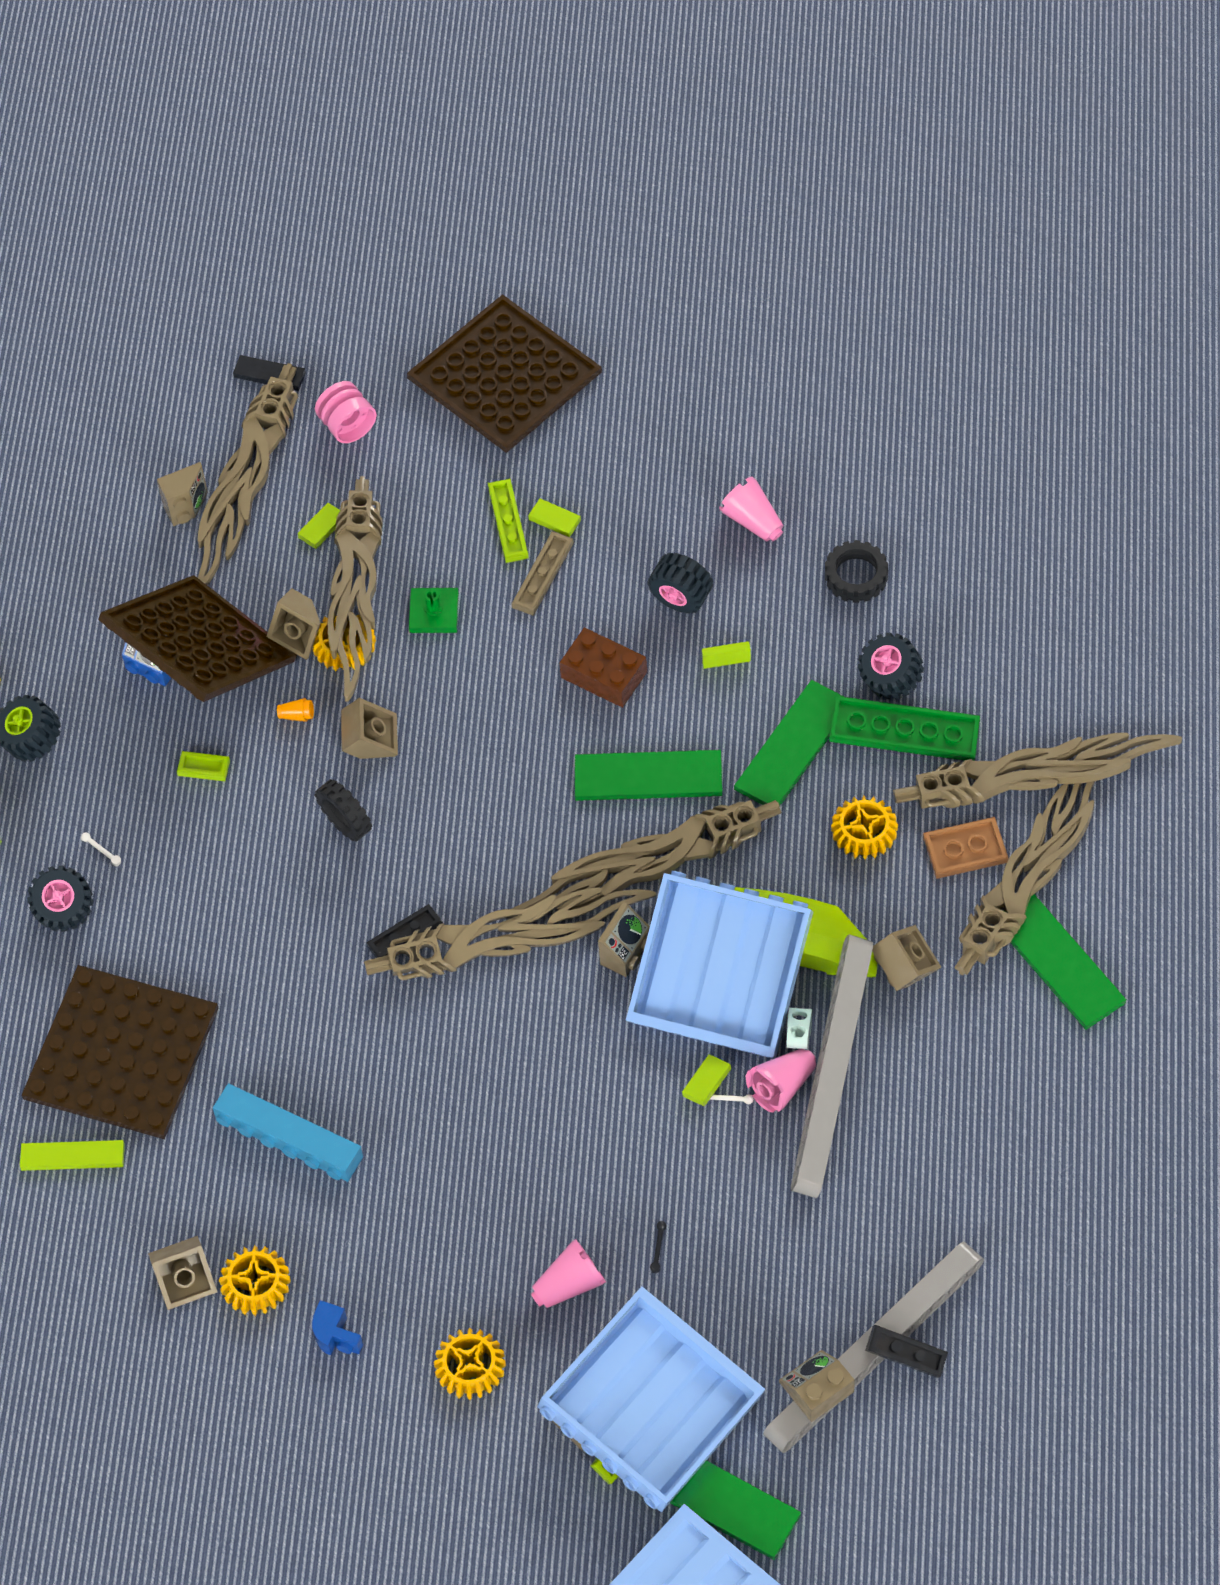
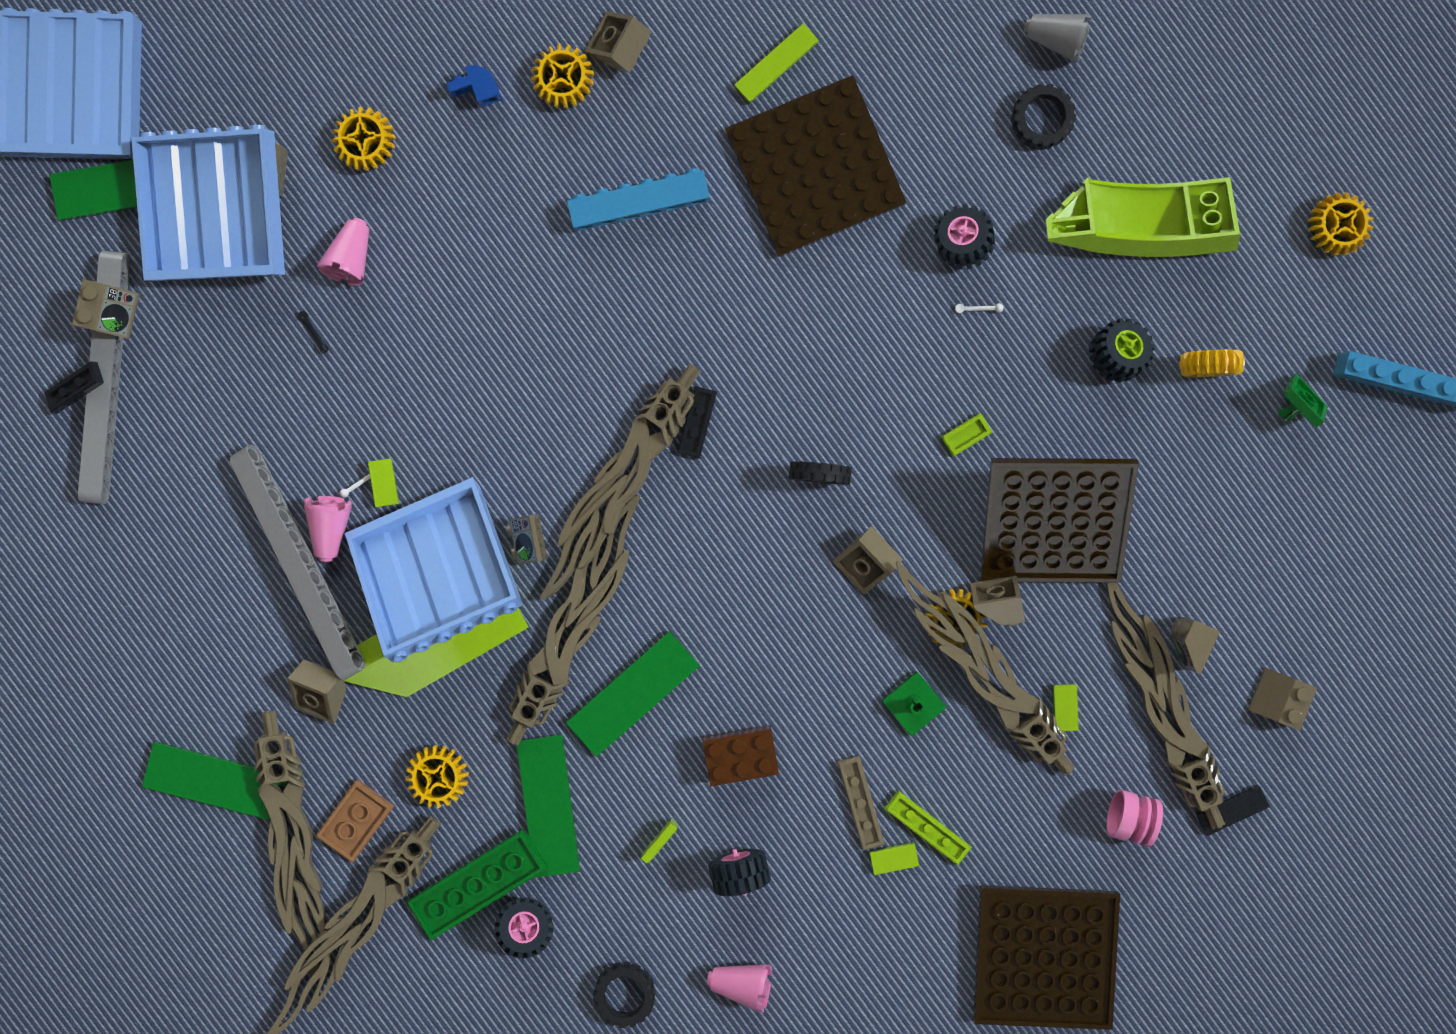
camera: 135 degrees right, 30 degrees up
(157, 415) = (1282, 698): none -> dark tan slope
(296, 710) = (938, 534): light orange cone -> none
(799, 1030) = (343, 570): light aqua leg -> none

